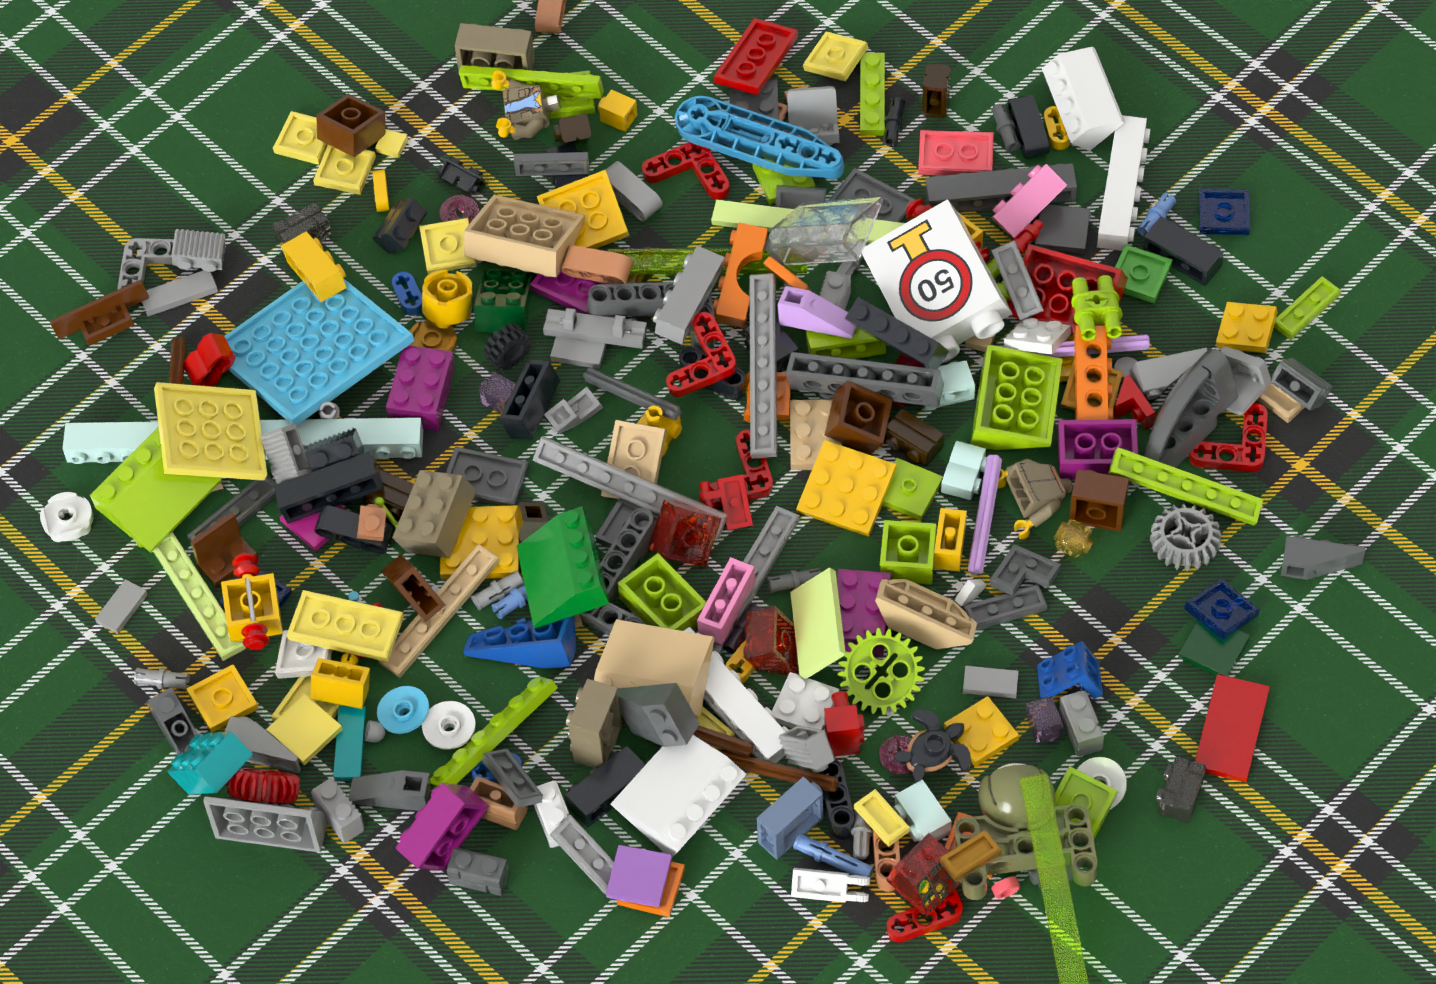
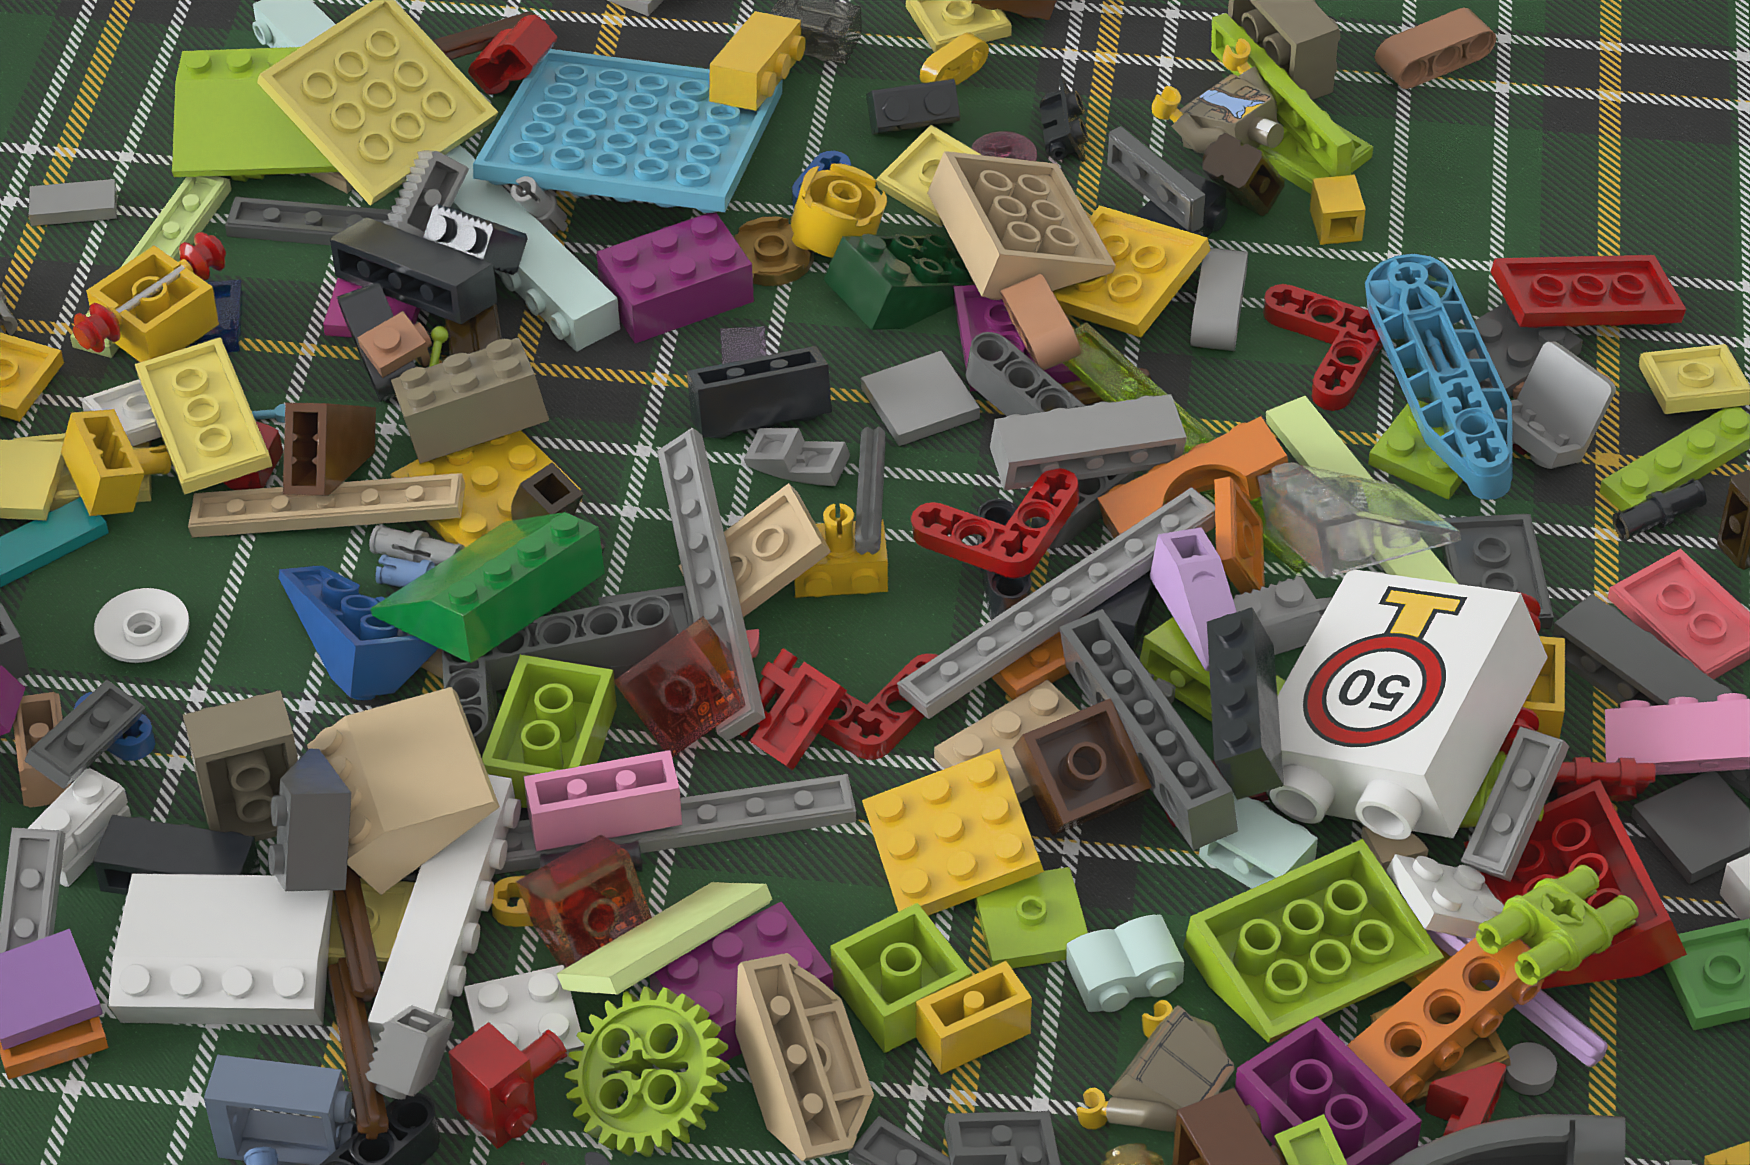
camera: 50 degrees right, 10 degrees down
(70, 529) = (143, 74): white plate -> none
(217, 549) = (245, 226): reddish brown bracket -> none
(374, 732) = (69, 555): light grey hinge -> none
(392, 144) = (1044, 35): light yellow tile -> none
(398, 702) = (127, 561): medium azure dish -> none
(494, 477) = (600, 431): dark grey tile -> none
(496, 731) = (146, 679): lime plate -> none
(507, 346) = (828, 302): black tyre -> none
(595, 328) = (946, 390): light grey hinge -> none
(791, 580) = (727, 867): dark grey pin -> none
(792, 196) = (1396, 466): dark grey tile -> none
(914, 438) = (1123, 865): dark brown brick -> none
(970, 591) = (912, 1108): white tile -> none
(984, 514) = (1067, 1038): lavender axle -> none
(1160, 373) = (1544, 1090): light grey slope -> none

